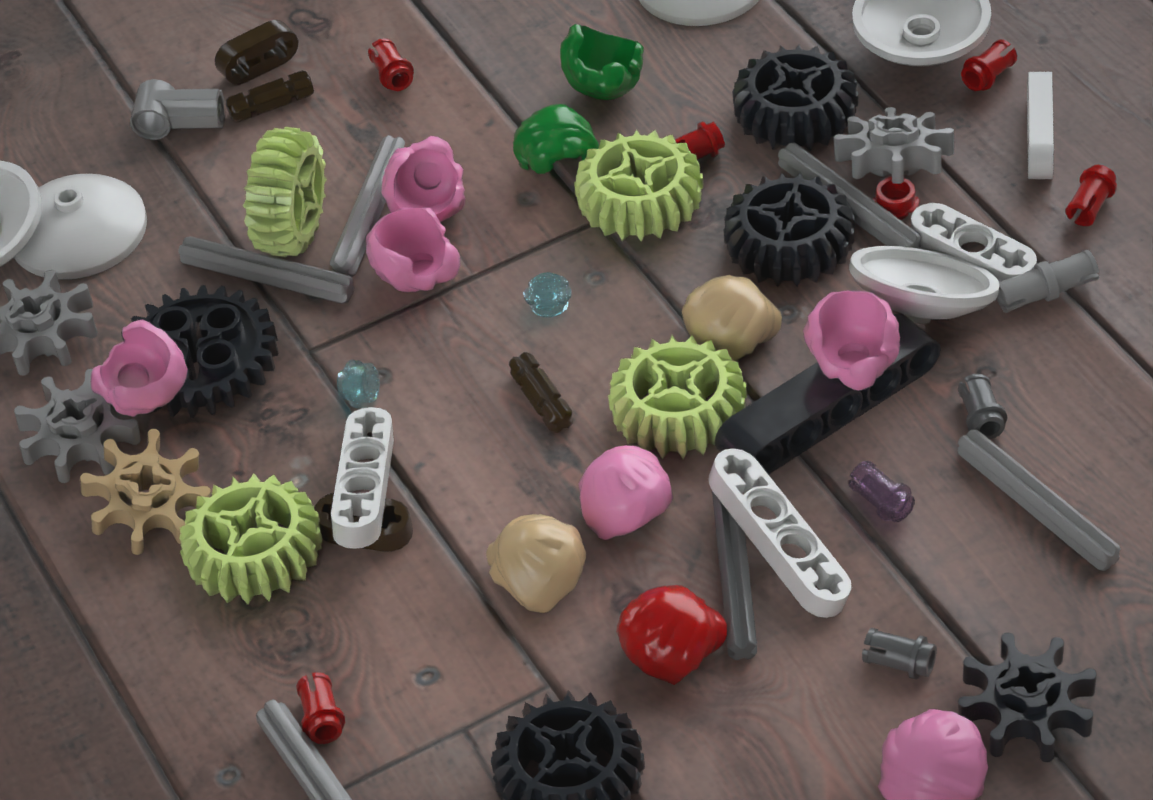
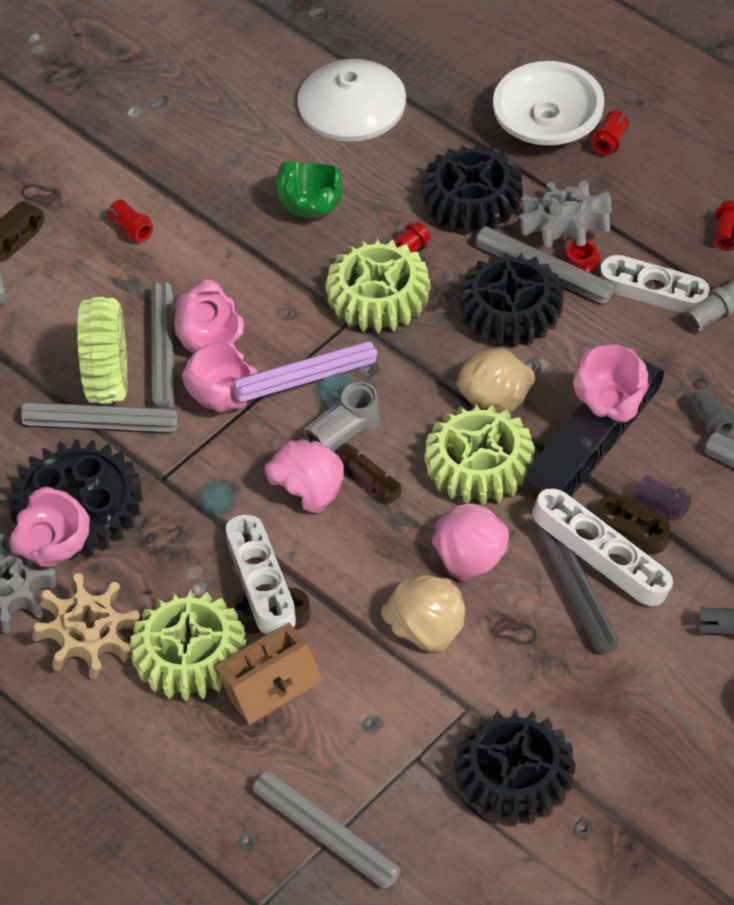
camera: 20 degrees left, 5 degrees up
(269, 96) = (38, 267): dark brown axle -> none
(321, 717) = (307, 778): red pin -> none
(322, 588) = (269, 673): none -> medium nougat brick
(466, 374) = (307, 472): none -> bright pink hair
(511, 262) = (304, 371): none -> lavender axle
(551, 136) = (296, 260): green hair -> none
(551, 321) = (345, 419): none -> light grey piece
(670, 632) = (551, 645): red hair -> none
(838, 511) = (635, 522): none -> dark brown beam
(923, 282) = (635, 321): white dish -> none
(1040, 125) = (669, 175): white beam -> none

